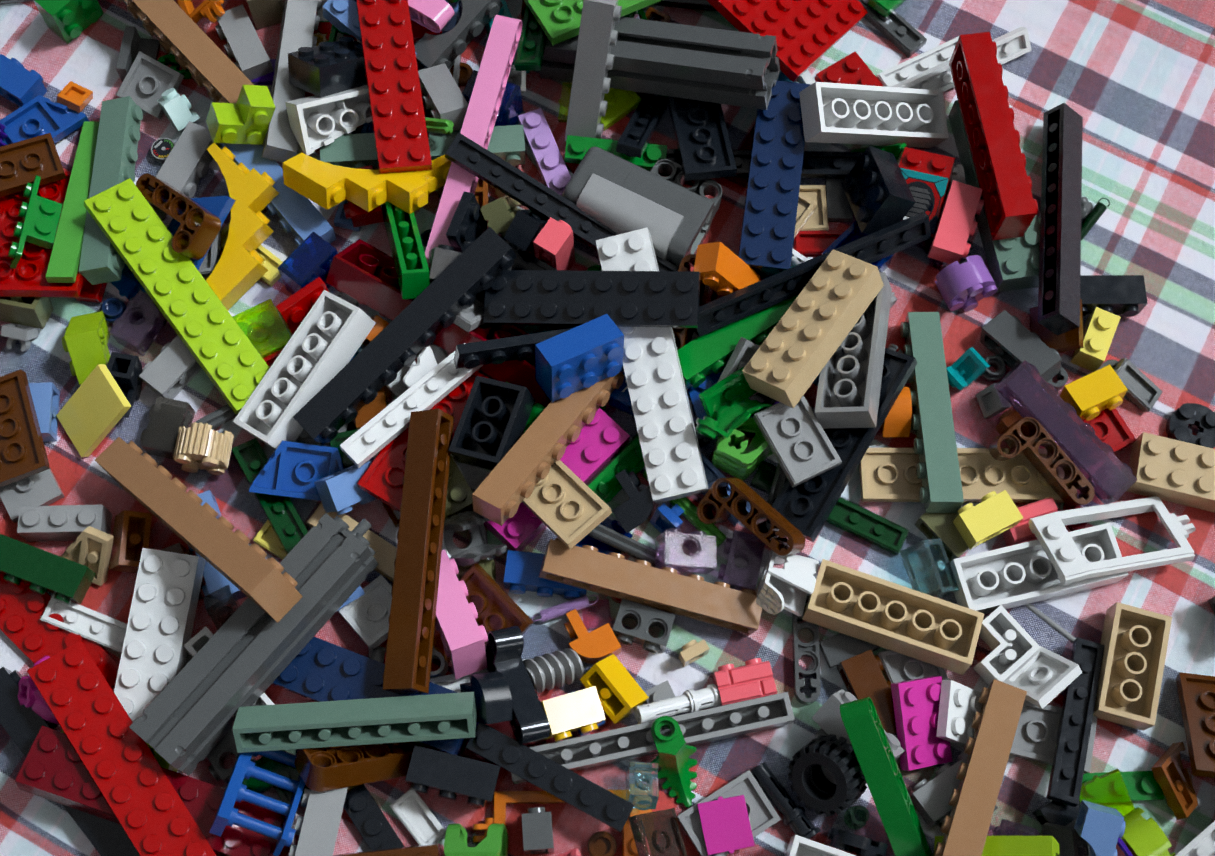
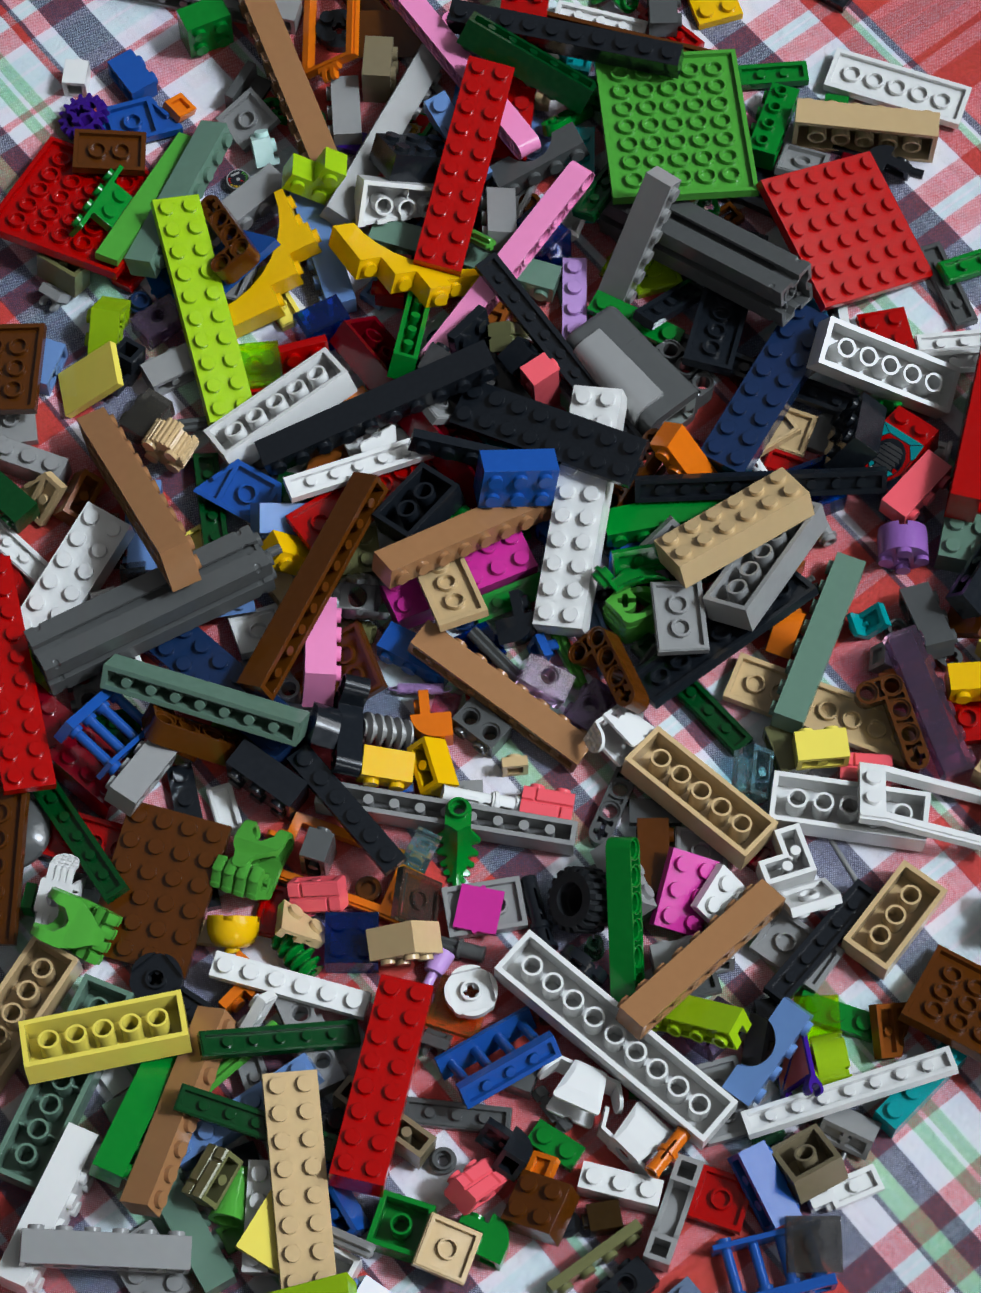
camera: 25 degrees right, 5 degrees down
(381, 516) = (293, 551): none -> yellow brick

